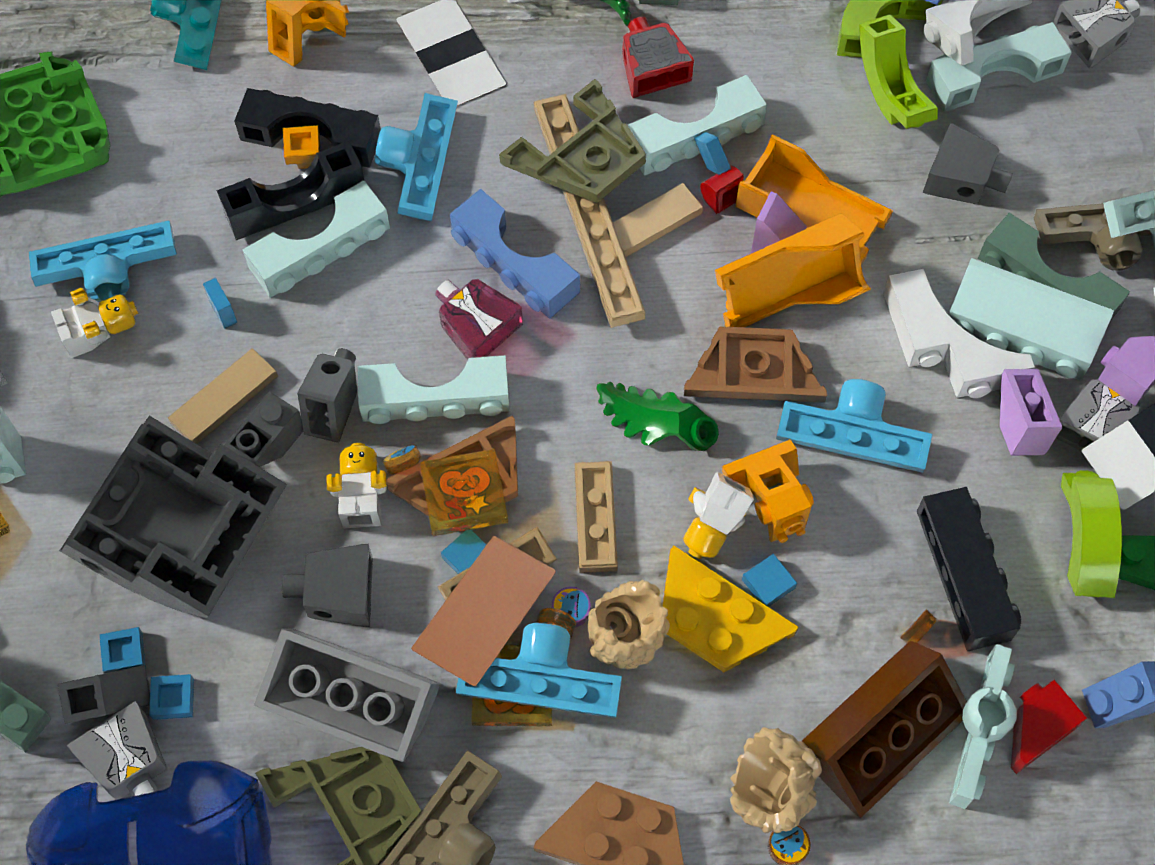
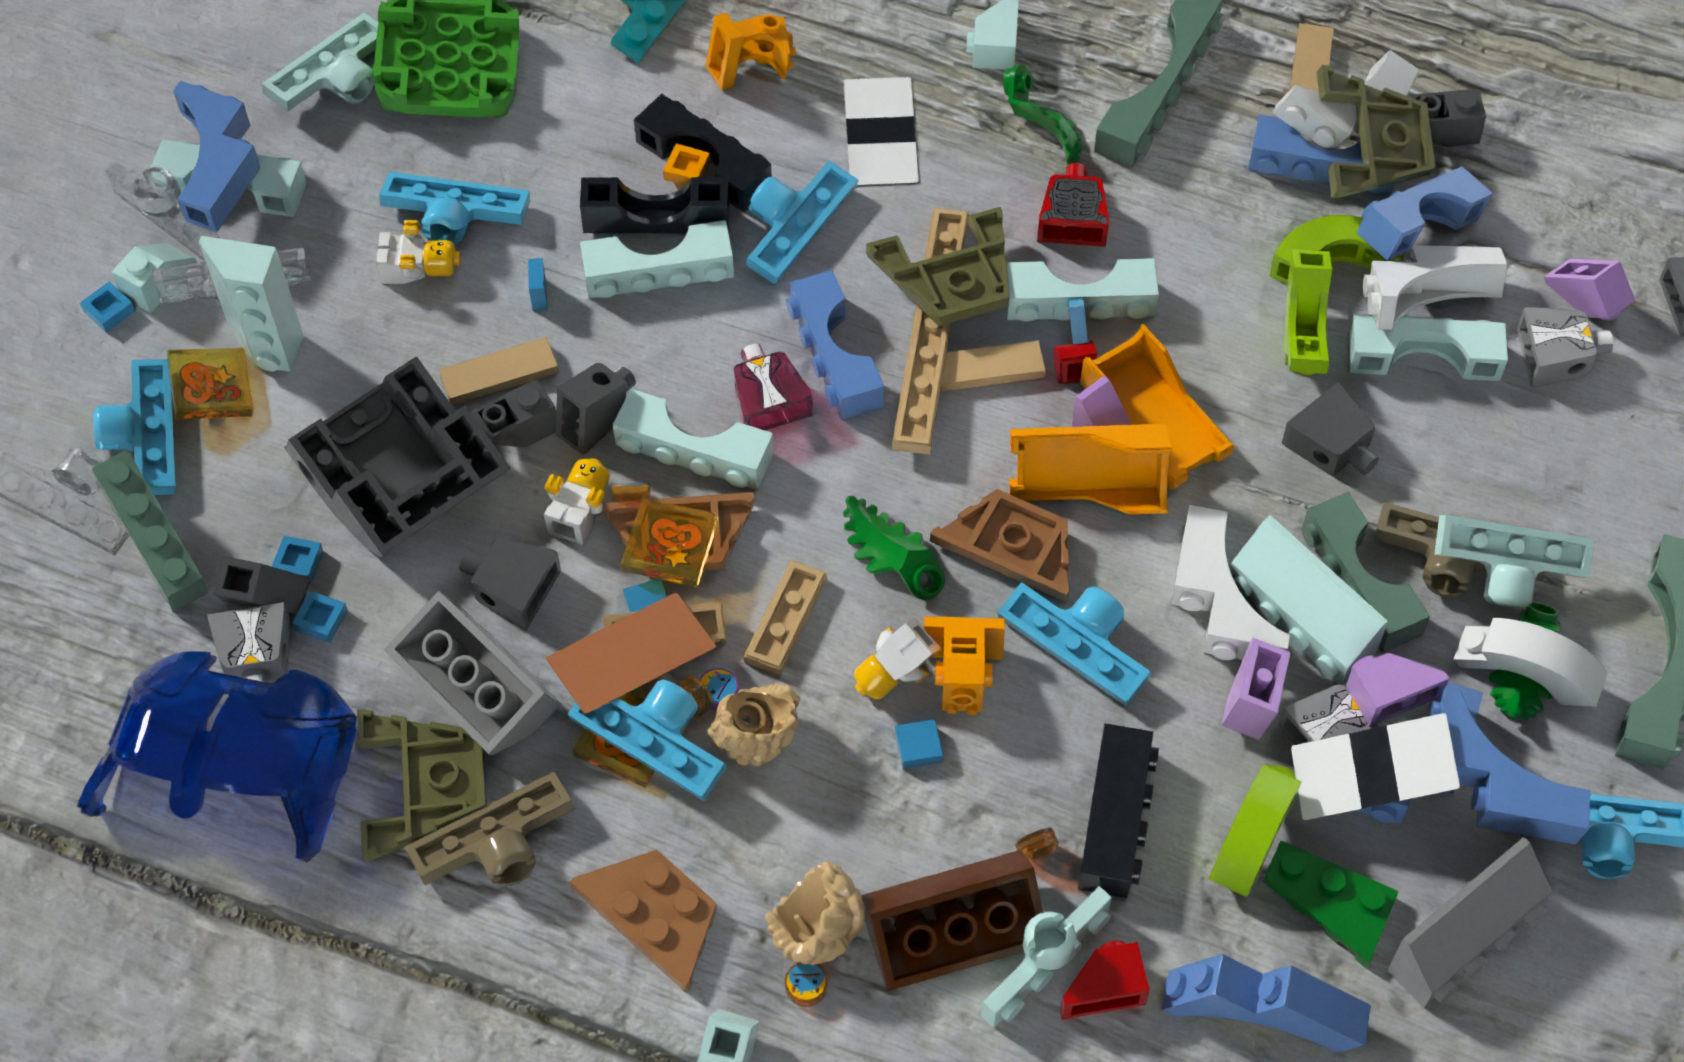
camera: 25 degrees right, 5 degrees down
(717, 616) = (850, 753): yellow wing -> none

